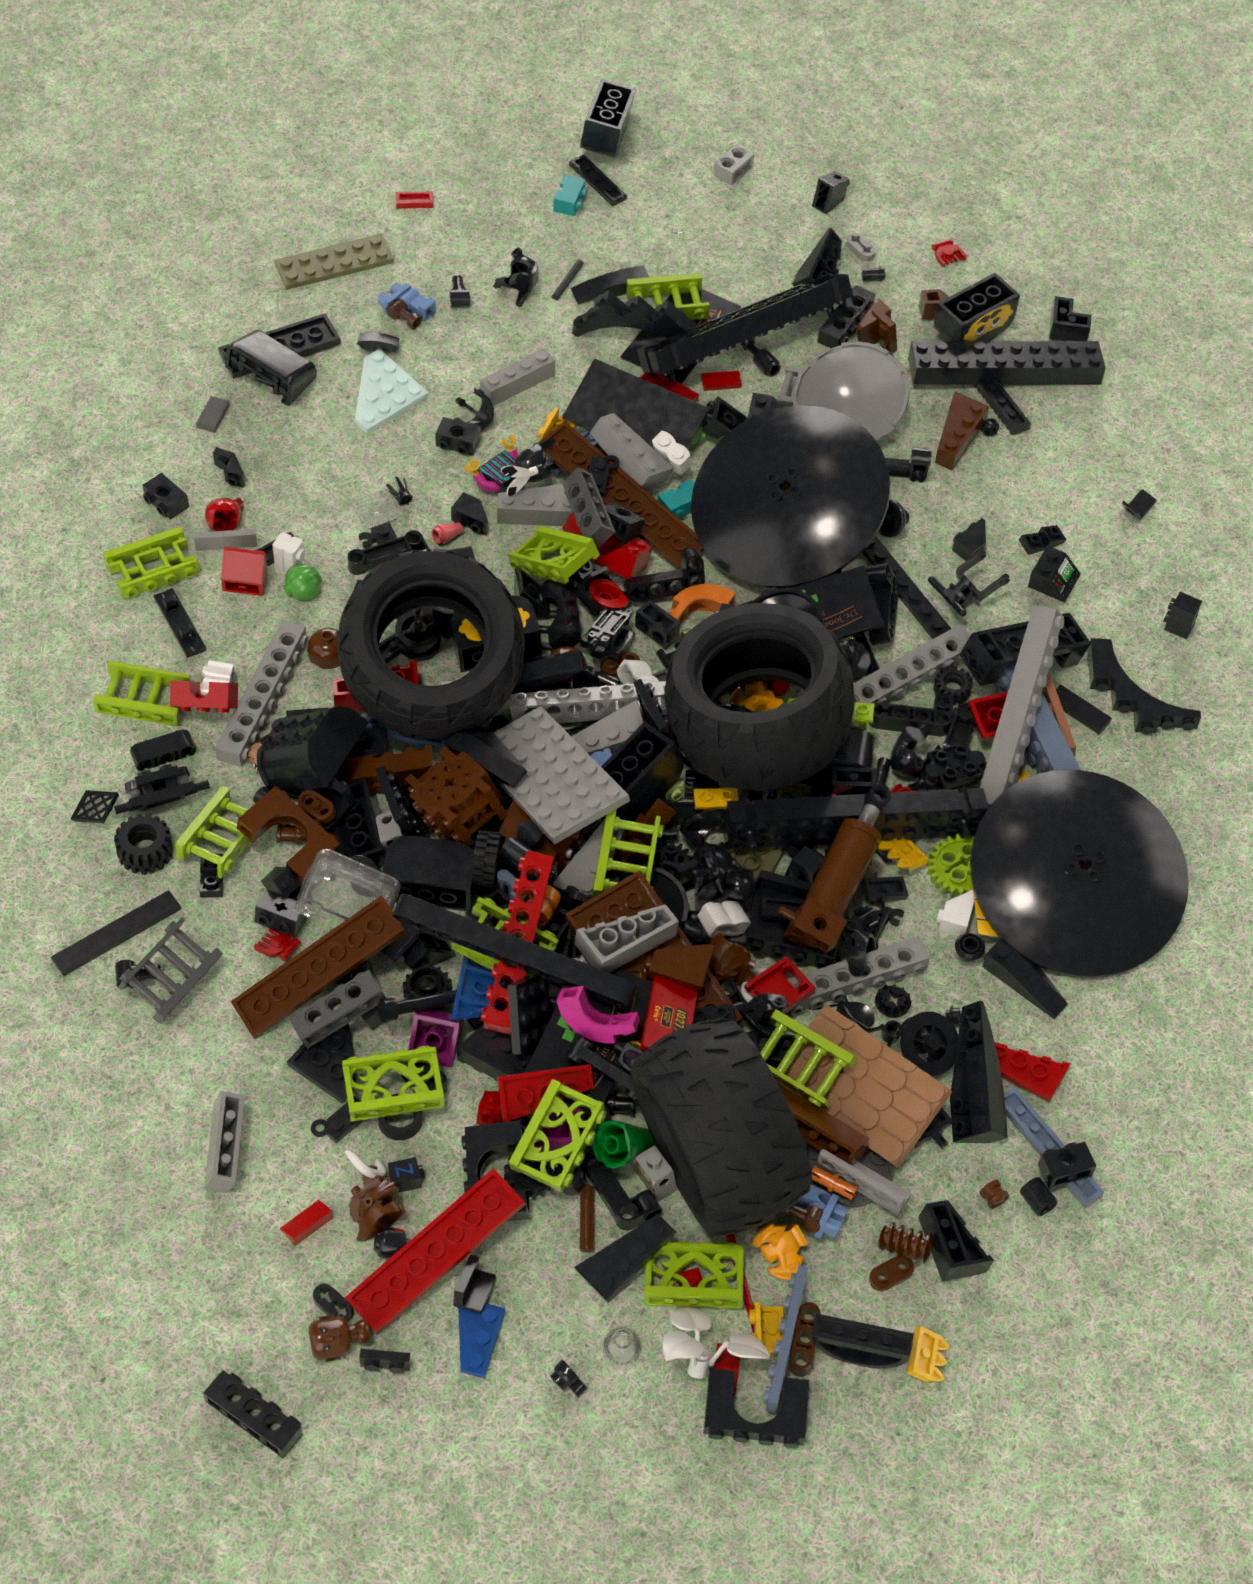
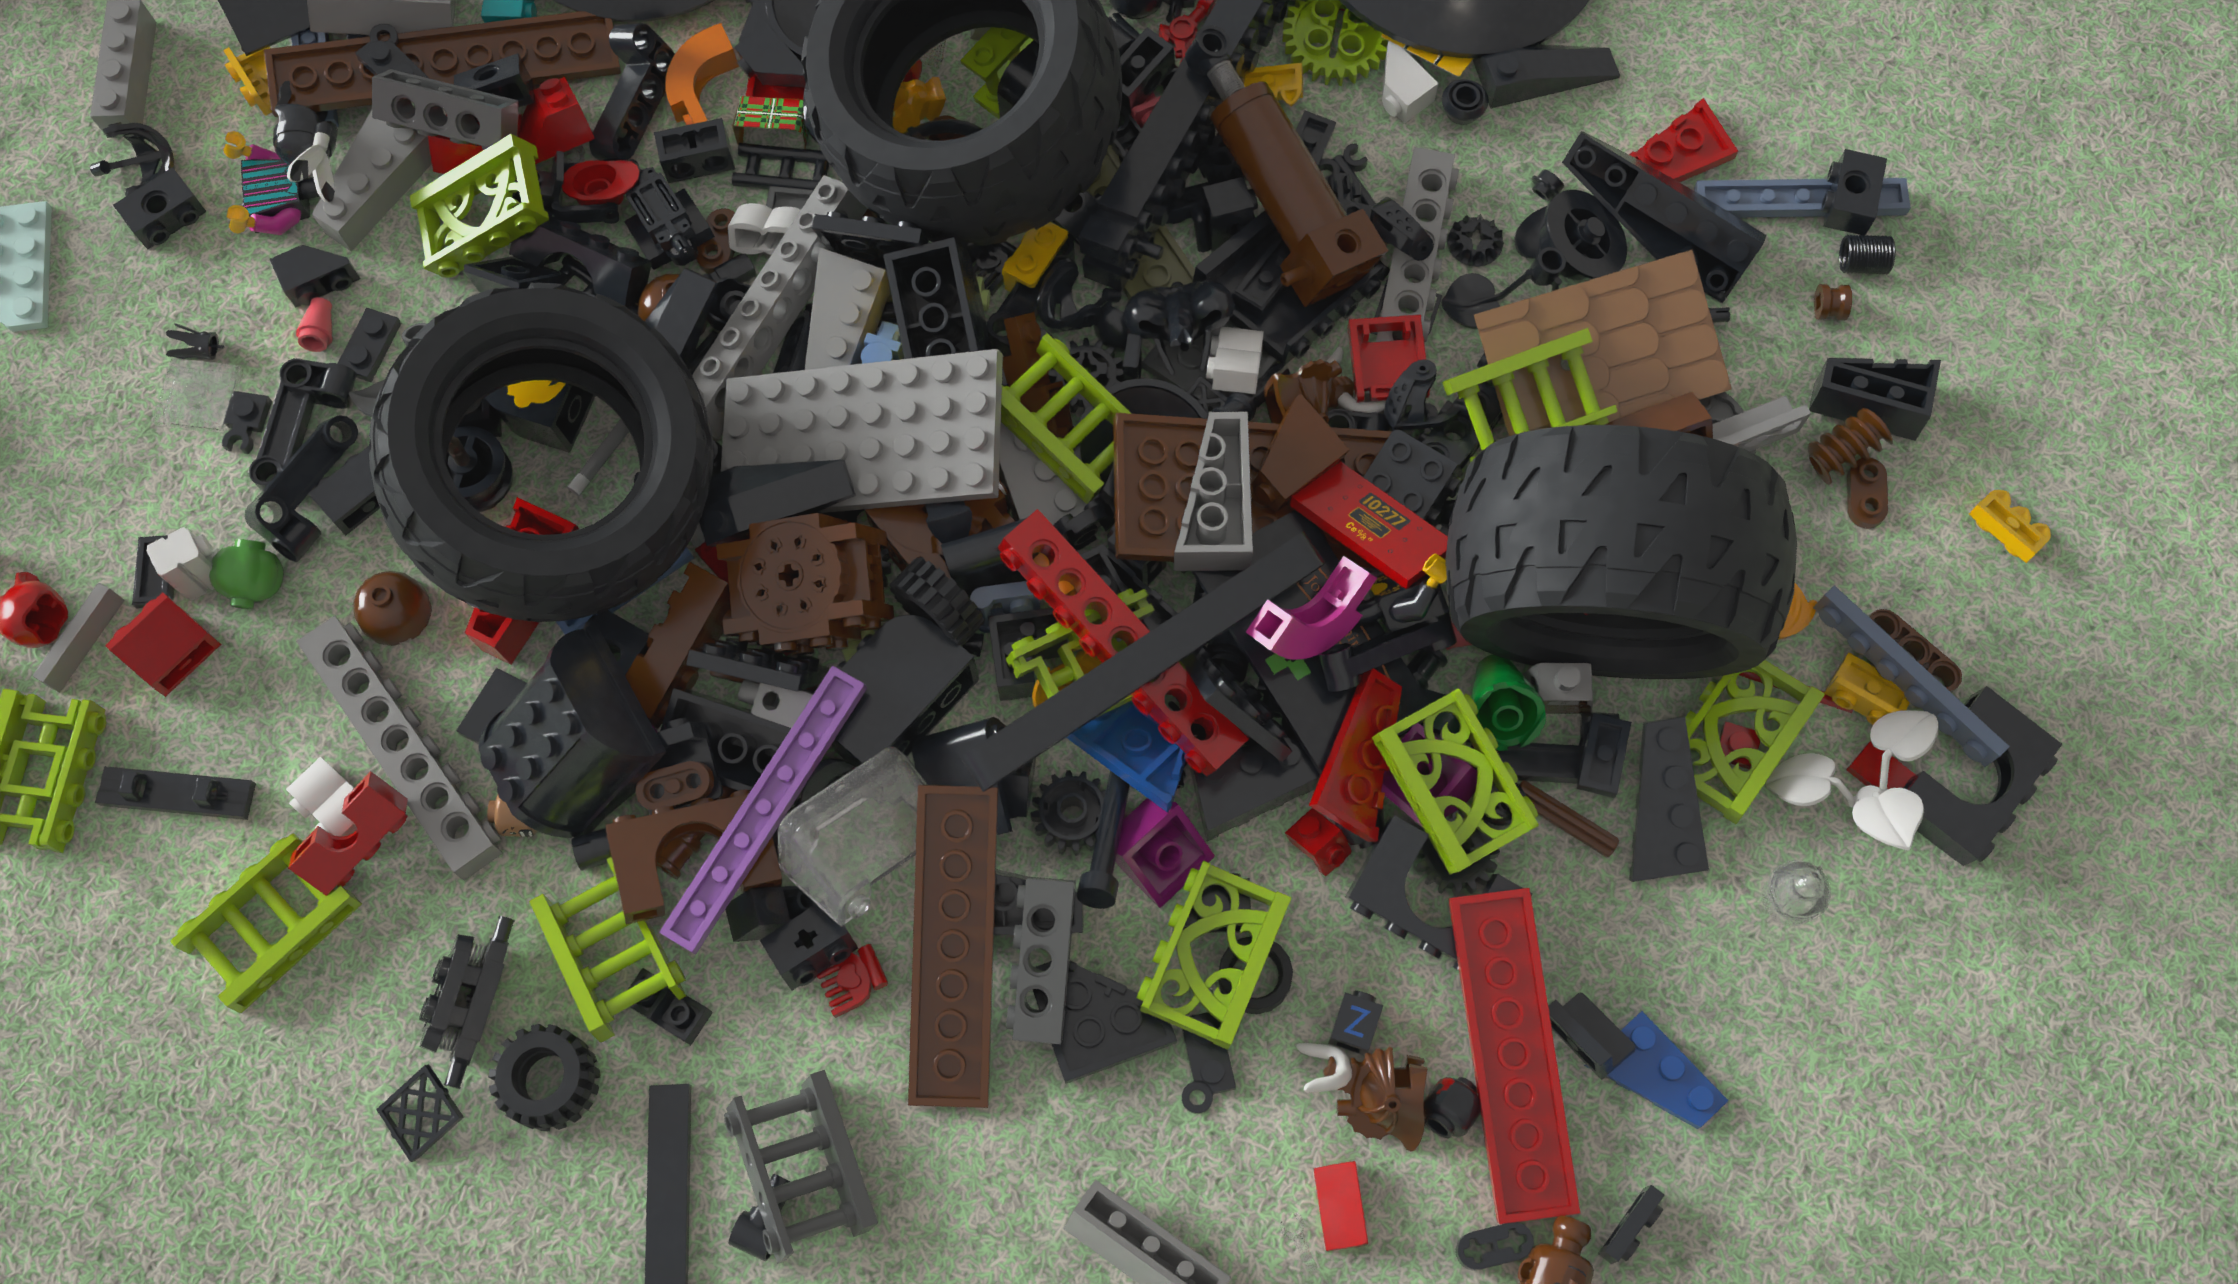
camera: 50 degrees left, 15 degrees up
(162, 749) = (390, 951): black beam -> none
(334, 586) = (289, 531): none -> black piece
(344, 843) = (763, 810): none -> medium lavender plate
(566, 1377) = (1794, 992): black piece -> none
(627, 1206) = (1604, 755): none -> black plate
(861, 1342) = (1975, 582): black window -> none

